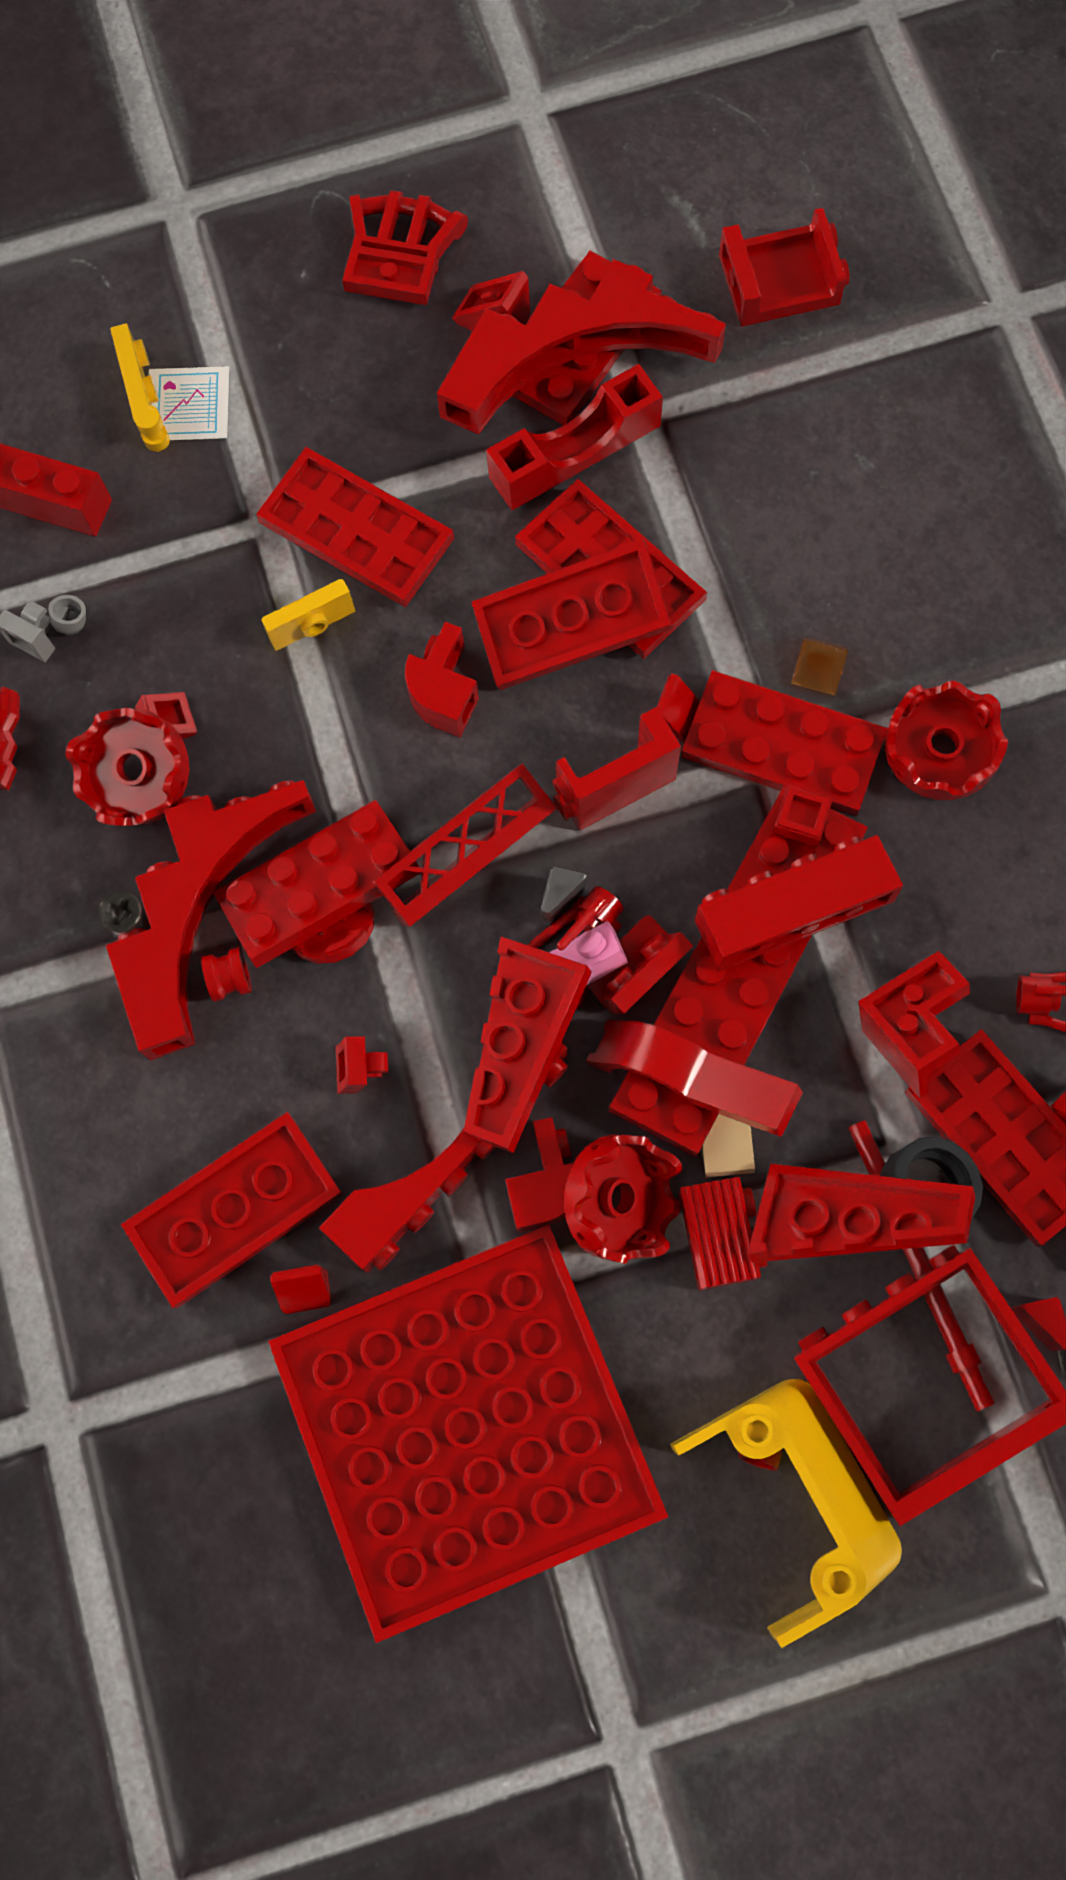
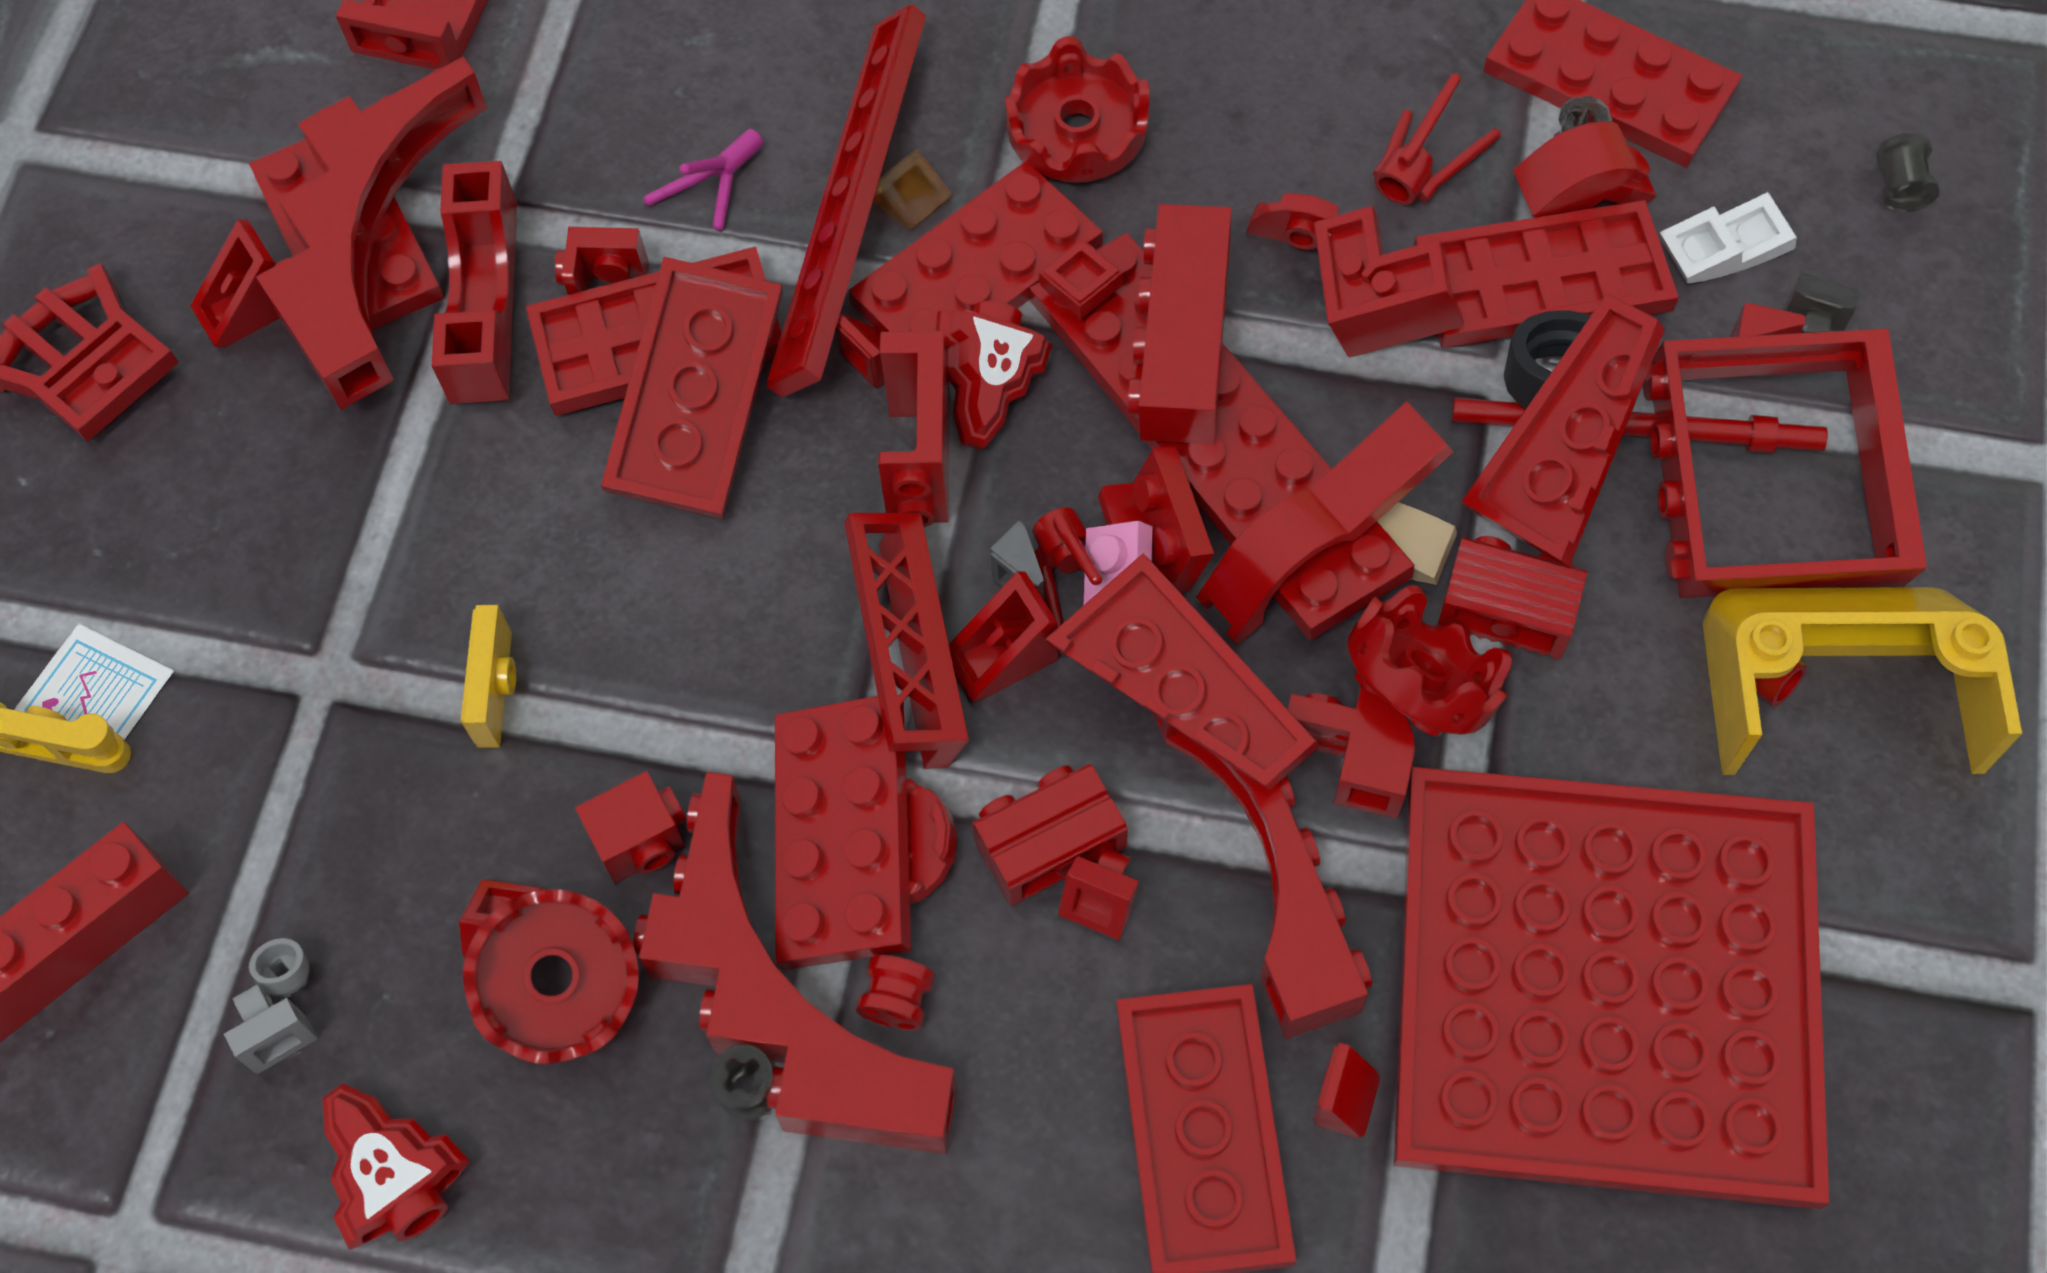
camera: 65 degrees left, 10 degrees down
(253, 758) = (634, 827): none -> red brick
(355, 526) = (406, 573): red plate -> none
(381, 1011) = (1038, 836): none -> red brick
(437, 692) = (681, 583): red brick -> none
(500, 910) = (1004, 640): none -> red slope
(642, 498) = (600, 254): none -> red bracket
(701, 791) = (988, 365): none -> red rock
(765, 535) = (722, 166): none -> dark pink plant
(781, 627) = (846, 204): none -> red tile
(948, 937) = (1291, 219): none -> red plate

